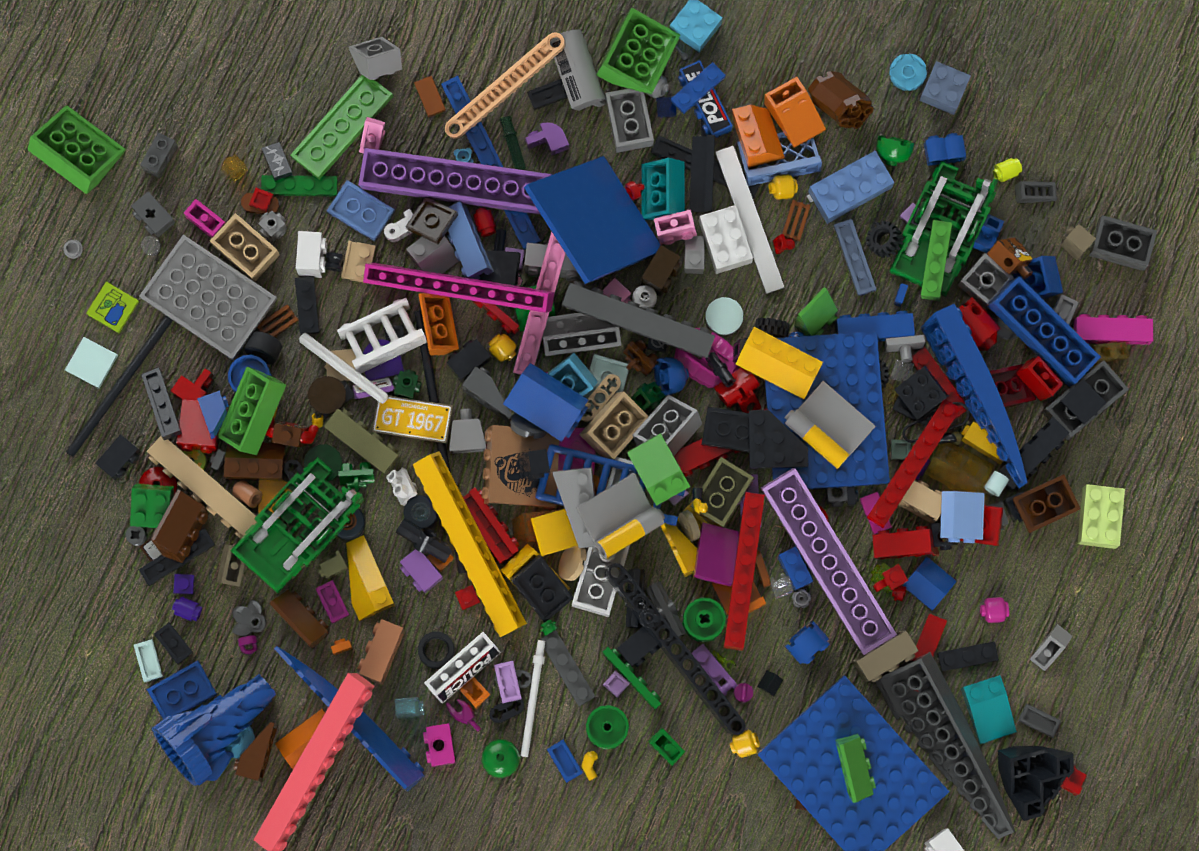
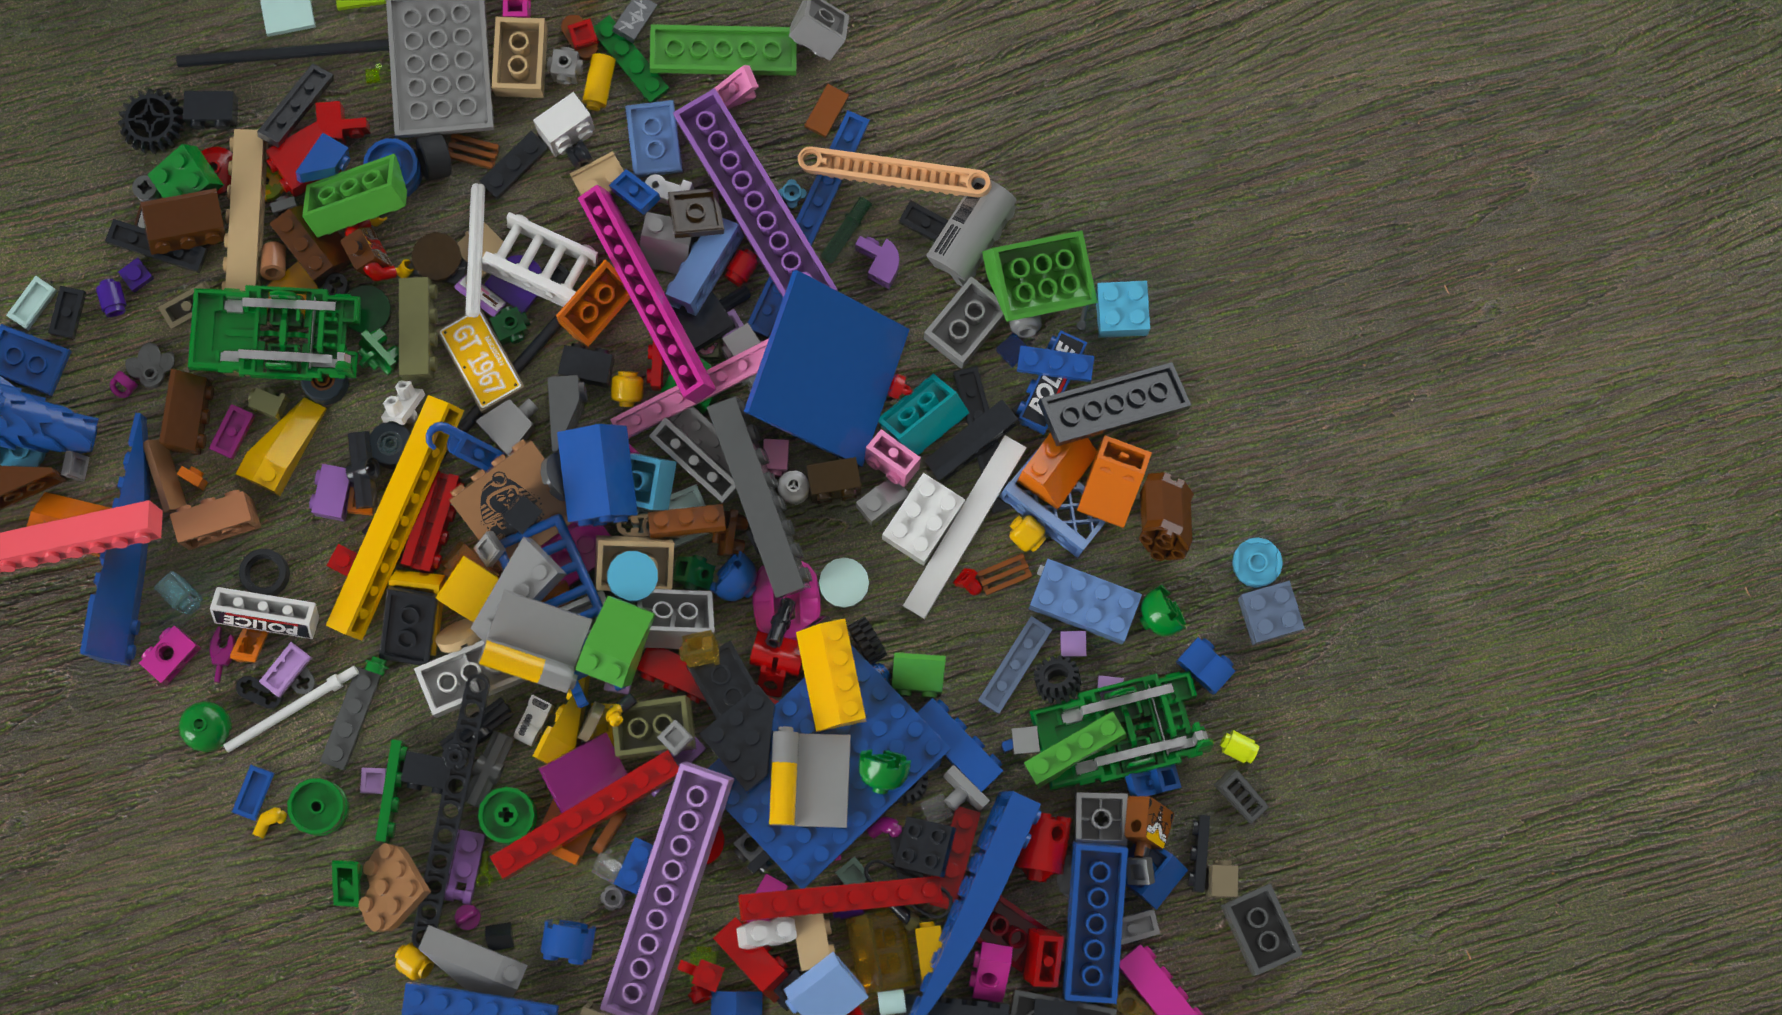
camera: 50 degrees right, 0 degrees up
(81, 489) = (132, 120): none -> black gear
(179, 344) = (372, 75): none -> clear neon green hand
(275, 711) = (75, 466): none -> light grey tile
(298, 213) = (598, 81): none -> yellow brick
(325, 662) = (164, 476): none -> medium nougat tile
(387, 246) = (635, 192): none -> blue plate
(462, 467) = (464, 445): none -> blue plate
(537, 501) = (489, 548): none -> light grey tile
(615, 375) = (686, 521): none -> dark orange plate
(625, 430) = (632, 576): none -> medium azure tile
(657, 561) = (533, 720): none -> white leg
(692, 720) = (393, 890): none -> medium nougat plate
(700, 427) = (699, 649): none -> clear yellow brick
(742, 481) = (675, 737): none -> light grey tile
(750, 74) = (1114, 404): none -> plate
(777, 709) = (472, 964): none -> light grey wedge
(861, 377) = (883, 770): none -> green cylinder
(869, 214) = (1073, 643): none -> lavender tile
(889, 405) = (885, 824): none -> magenta arm
(899, 521) = (766, 933): none -> white brick
(906, 285) = (1025, 740): none -> light grey tile
(1024, 414) = (992, 972): none -> dark pink brick
(1036, 280) = (1140, 871): none -> dark grey plate
(1050, 242) = (1198, 853): none -> black plate

